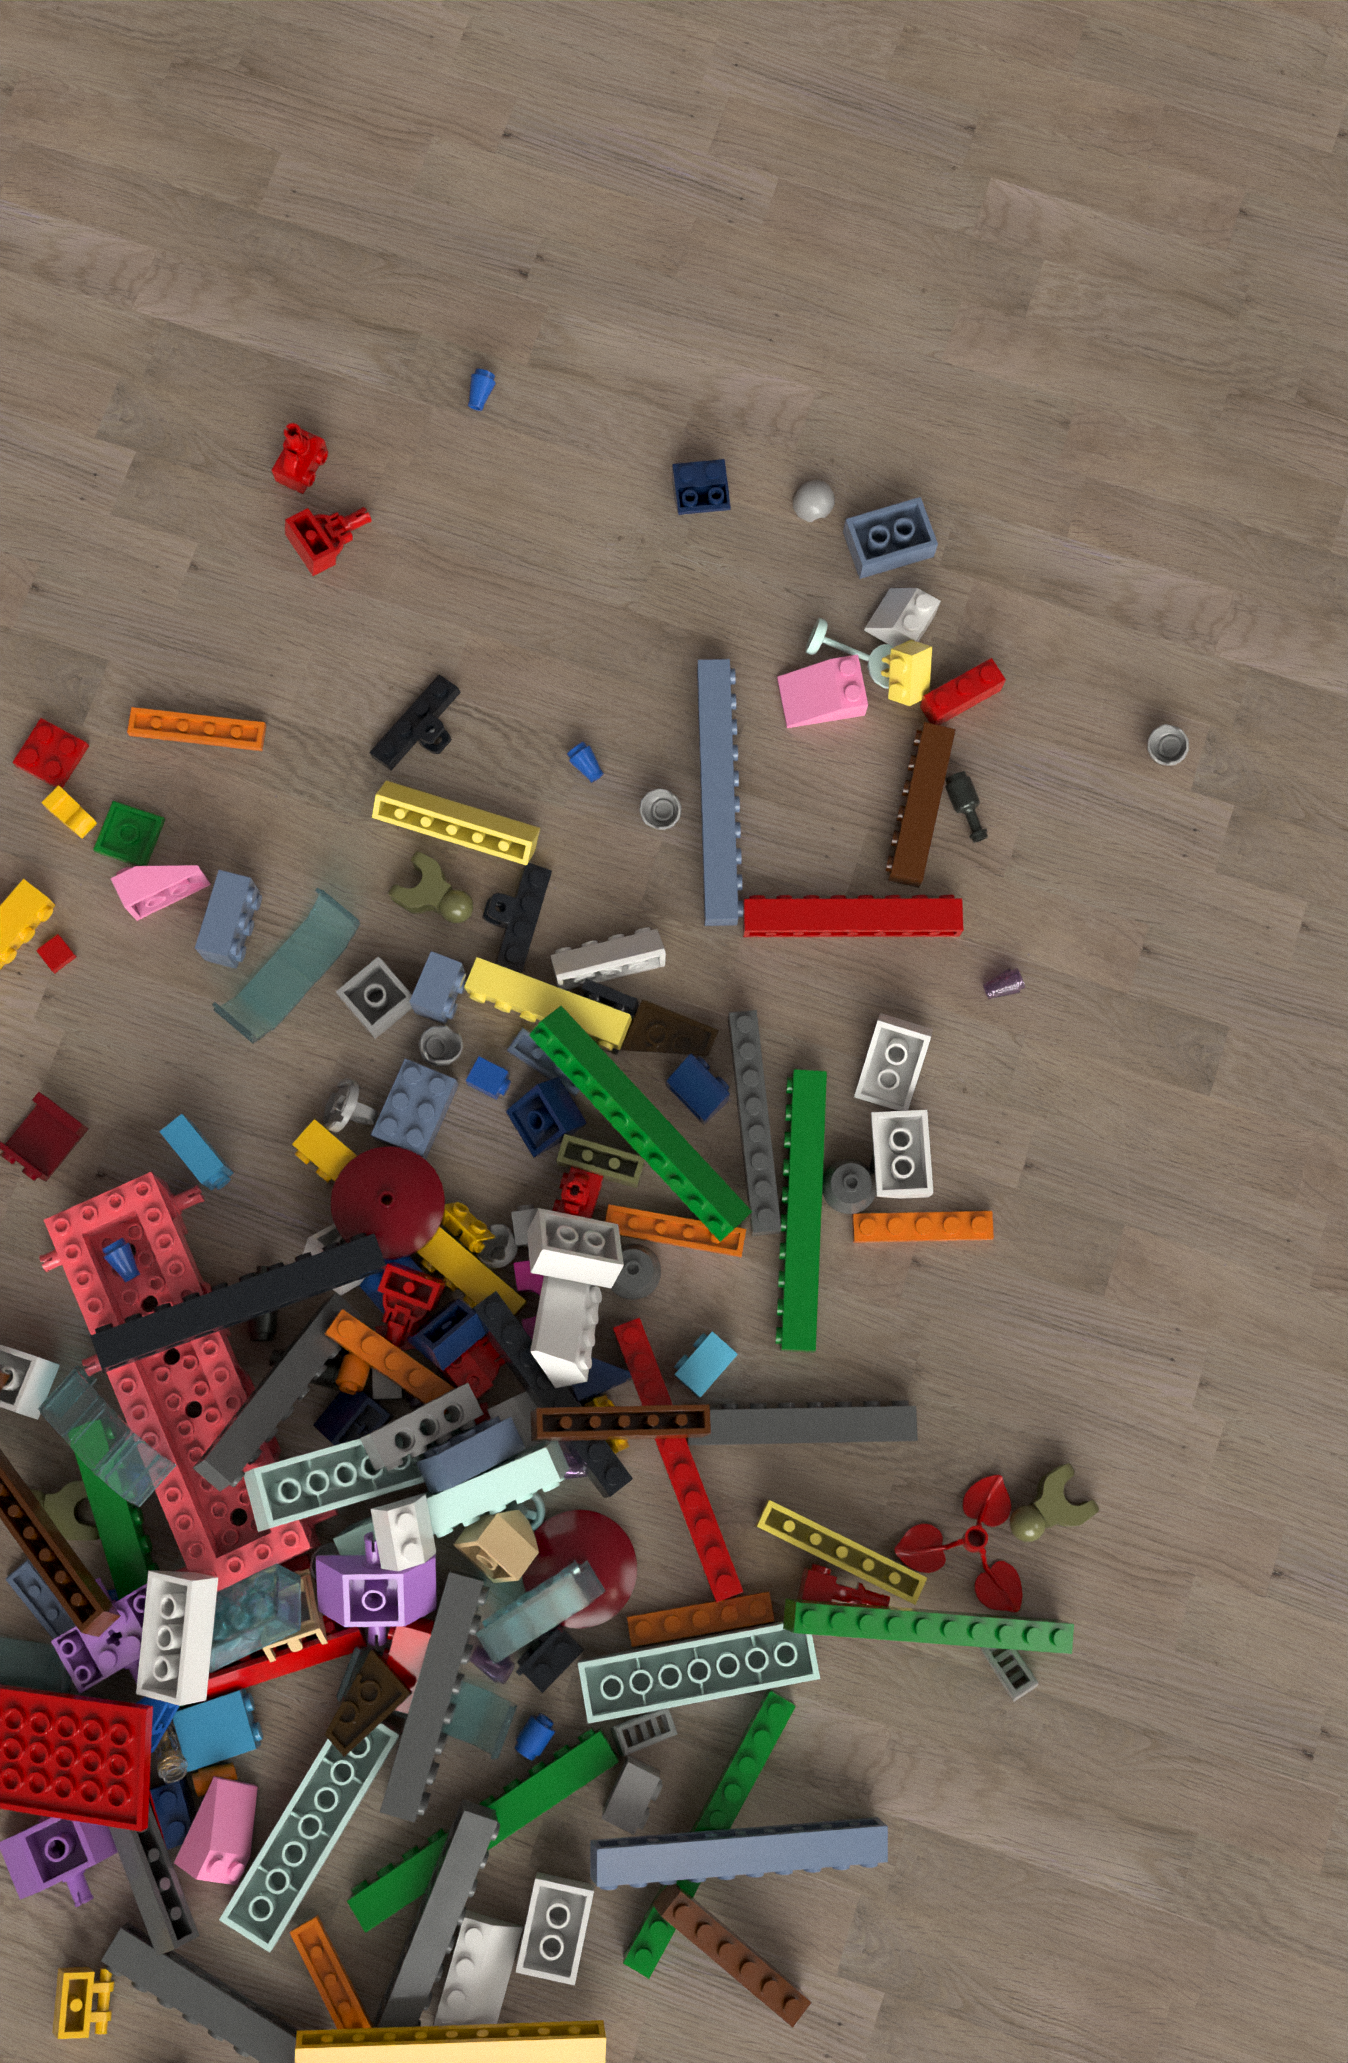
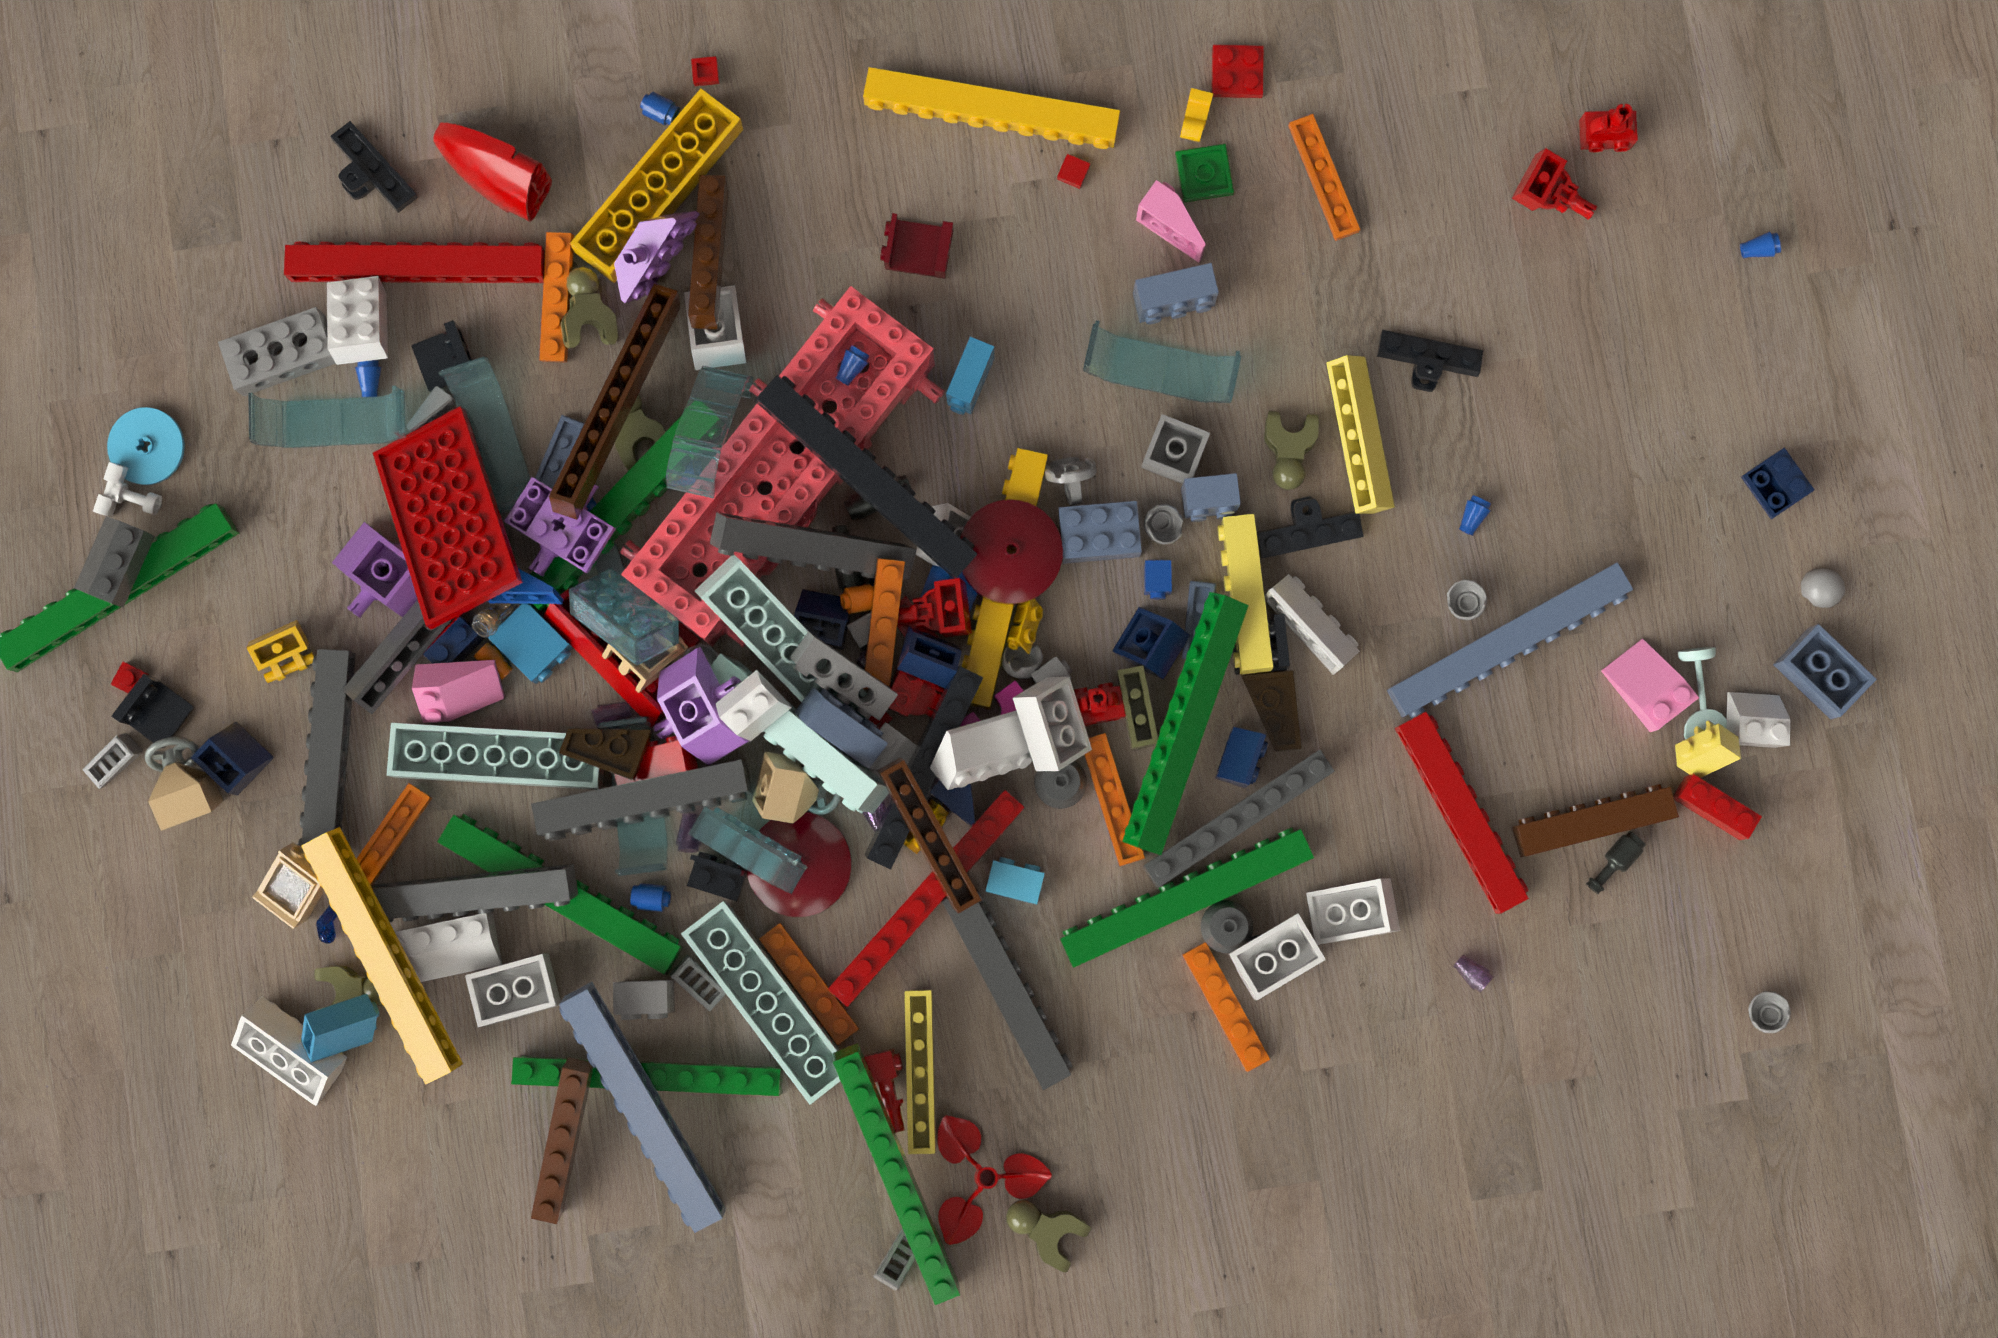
camera: 70 degrees right, 5 degrees up
(177, 1636) = (583, 572): white slope -> none
(331, 1682) = (611, 712): none -> cone

